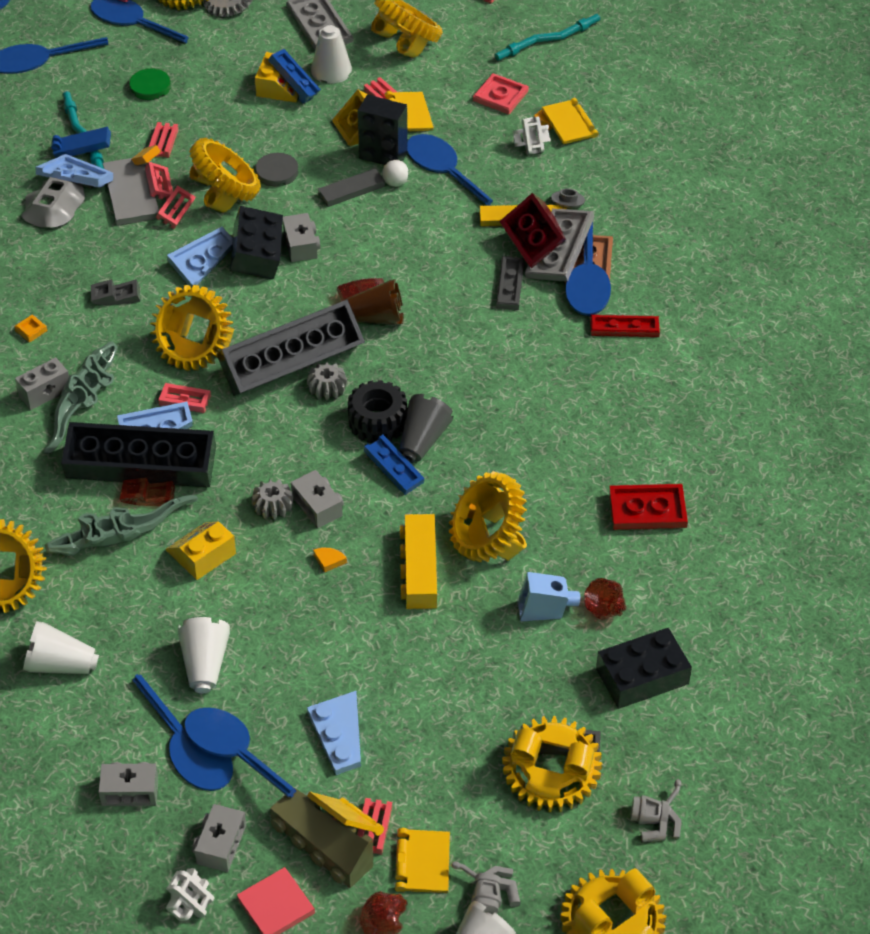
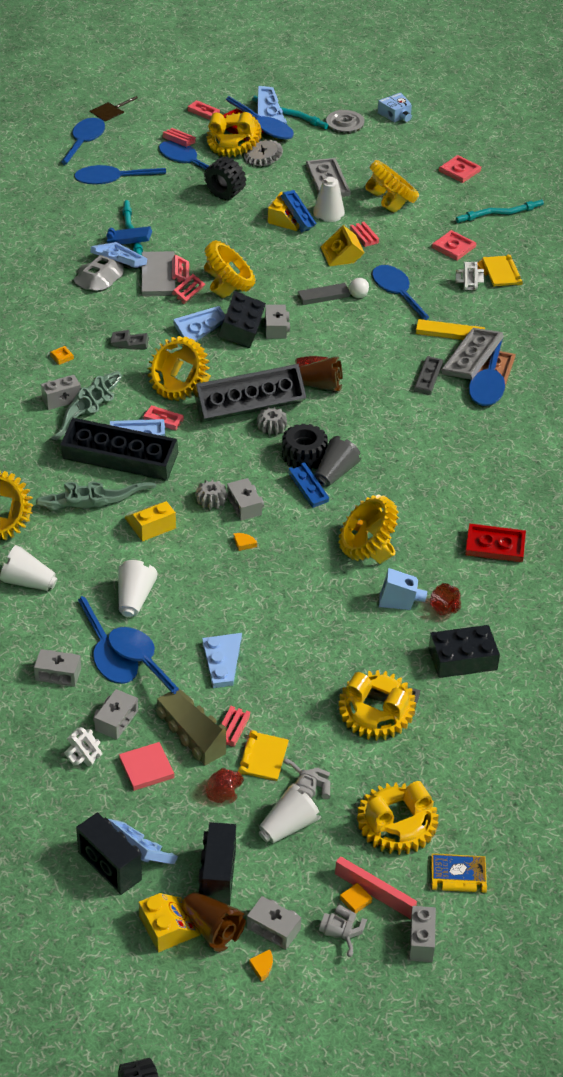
camera: 10 degrees right, 5 degrees down
(142, 493) = (117, 477): clear red slope -> none
(146, 155) = (174, 250): light orange tile -> none
(150, 84) = (190, 203): green tile -> none
(174, 130) = (187, 242): coral tile -> none
(189, 43) = (225, 178): none -> black tyre
(277, 169) = (270, 273): dark grey tile -> none
(346, 813) = (213, 710): yellow piece -> none
(382, 130) = (354, 254): black brick -> none
(417, 112) = (380, 247): yellow piece -> none
(420, 564) = (311, 553): yellow brick -> none
(533, 229) = (453, 338): dark red slope -> none
(568, 198) = (487, 323): dark grey piece -> none
(624, 325) = (509, 417): red tile -> none
(652, 811) = (445, 750): light grey piece -> none

